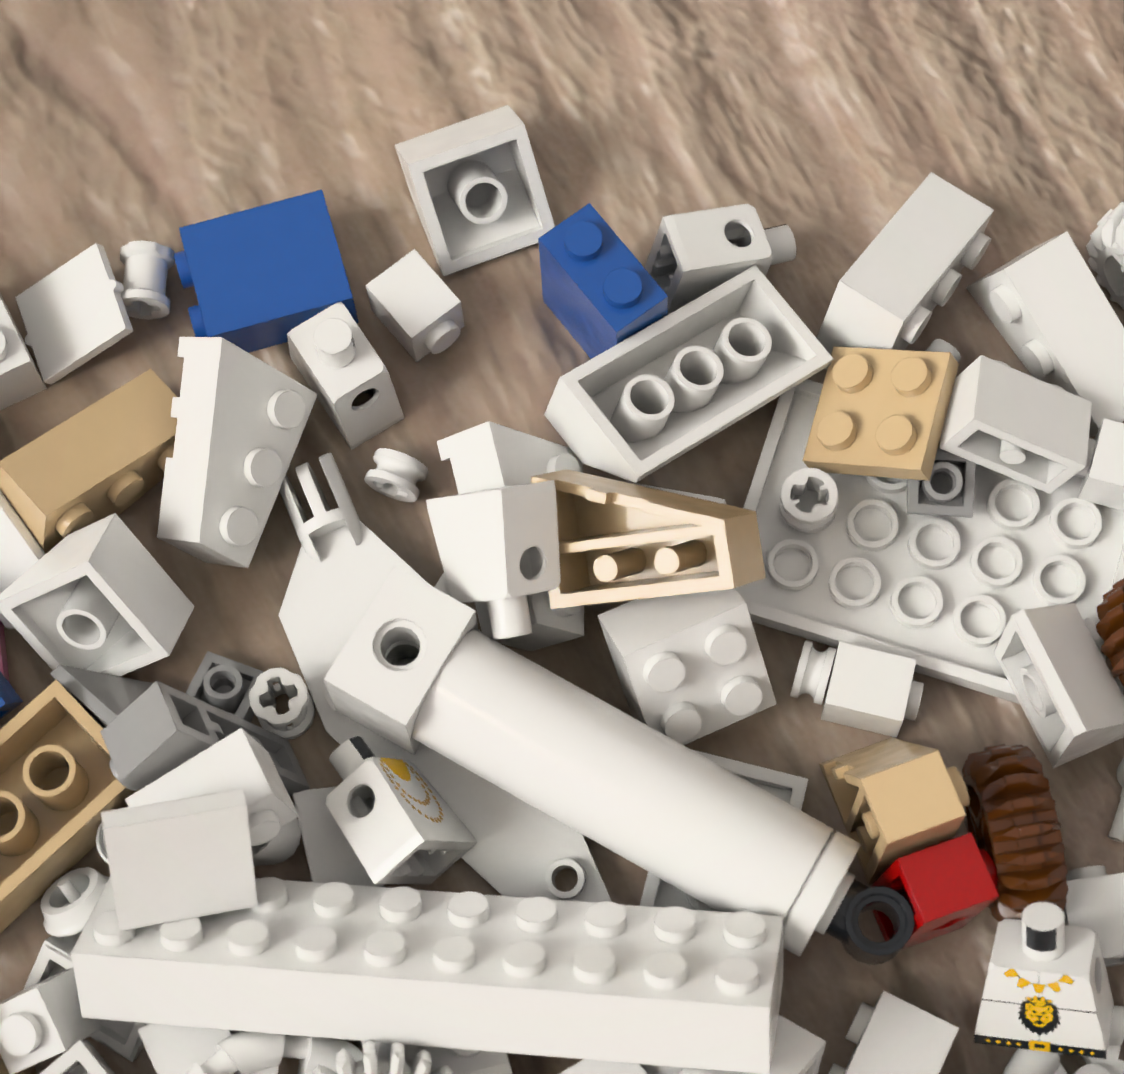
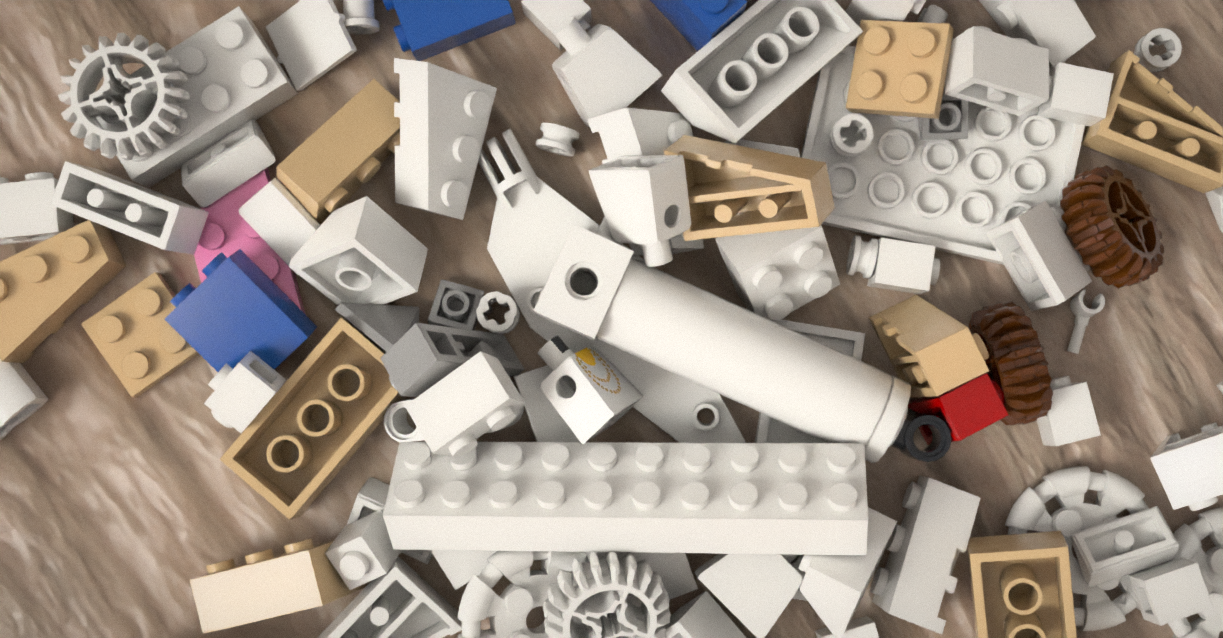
camera: 10 degrees left, 15 degrees up
(71, 901) = (374, 464): white hat -> none
(180, 859) = (451, 449): white tile -> none
(340, 366) = (513, 69): white torso -> none
(464, 379) = (600, 69): none -> white torso
(1046, 987) = (1035, 466): torso -> none

